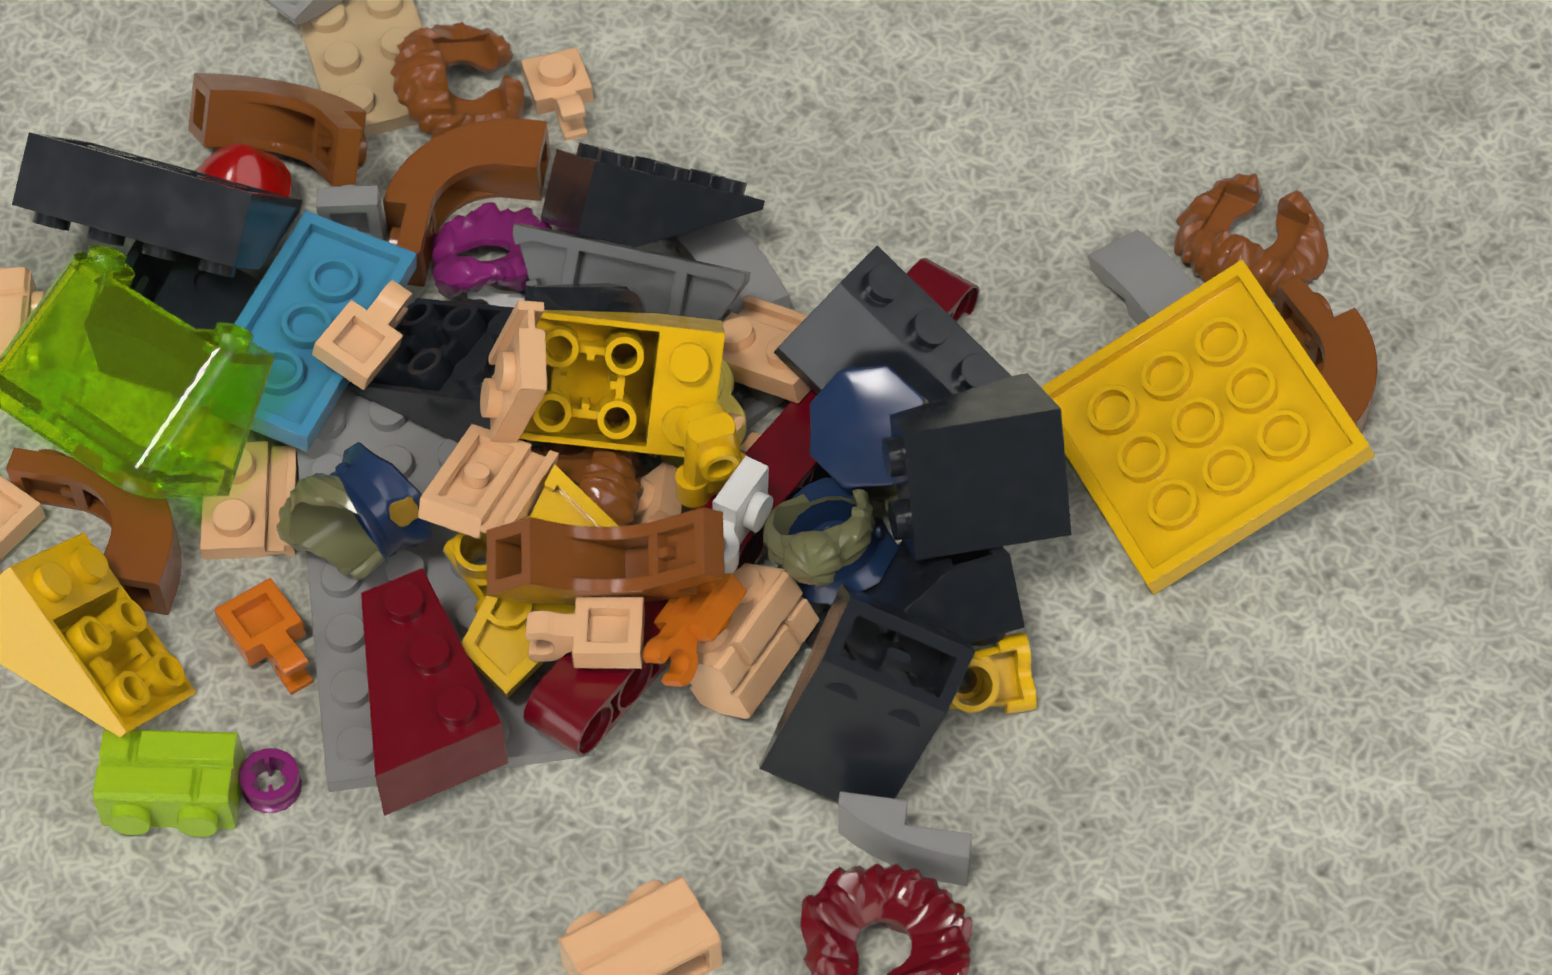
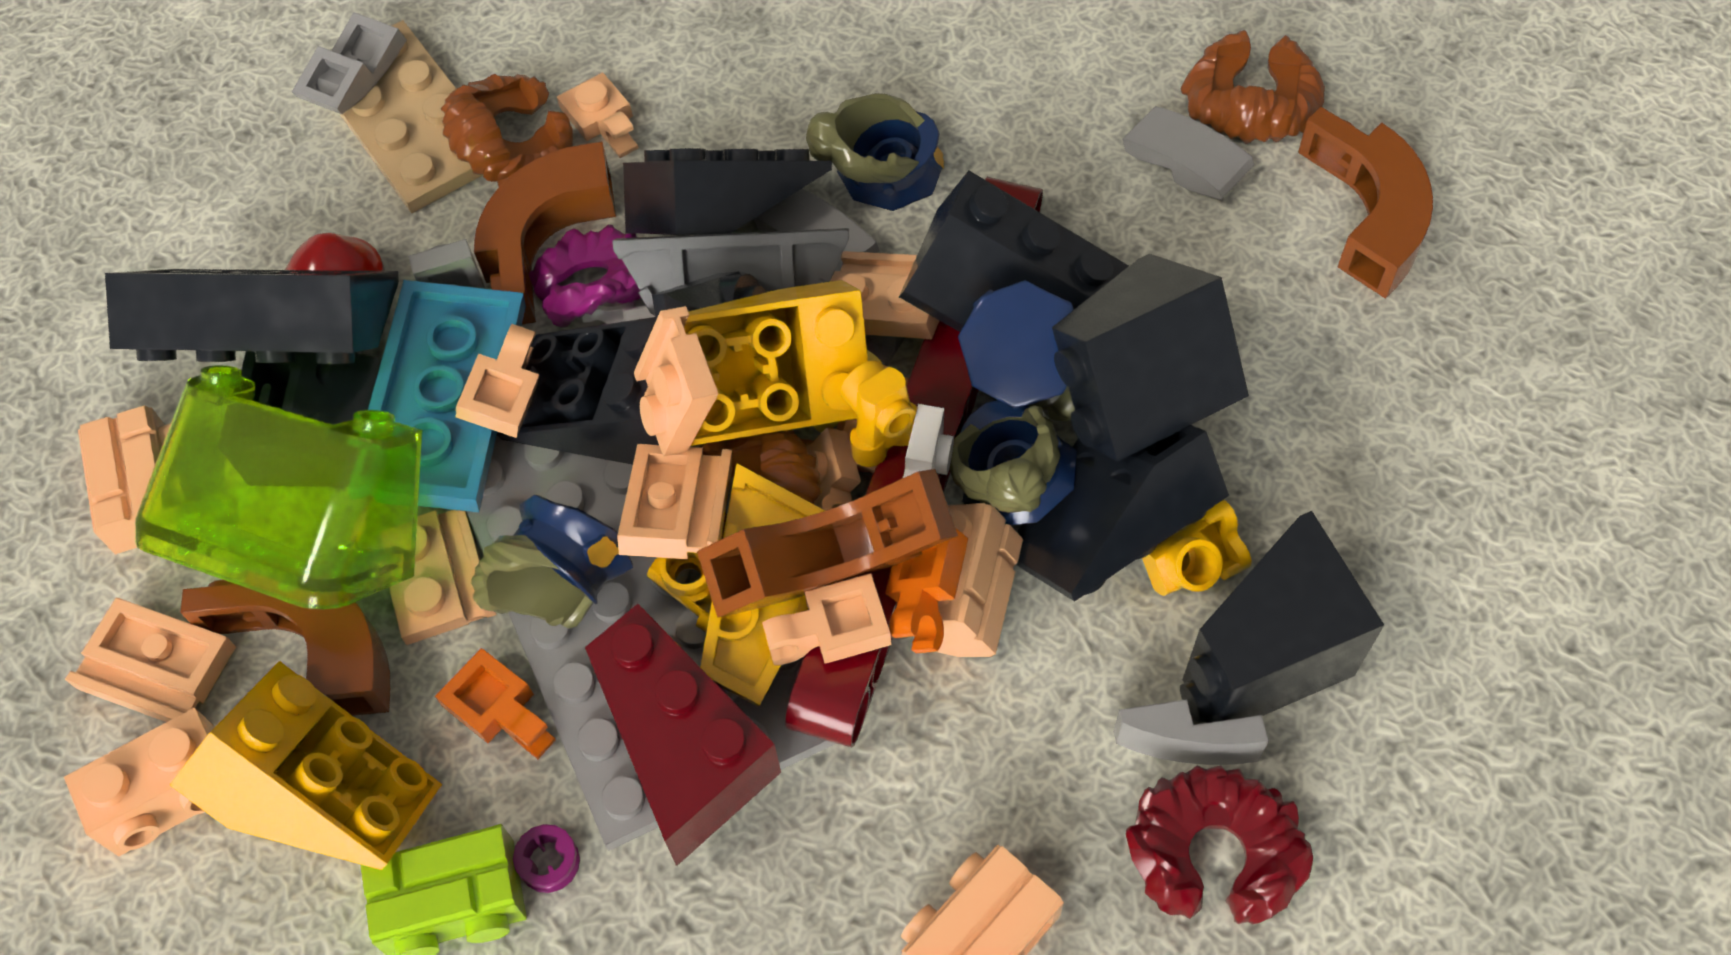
camera: 15 degrees left, 5 degrees up
(280, 120) = (353, 202): dark orange arch -> none
(828, 201) = (879, 149): none -> piece
(866, 699) = (1120, 610): black slope -> none
(1017, 764) = (1282, 631): none -> black slope
(1203, 427) = (1312, 258): yellow plate -> none

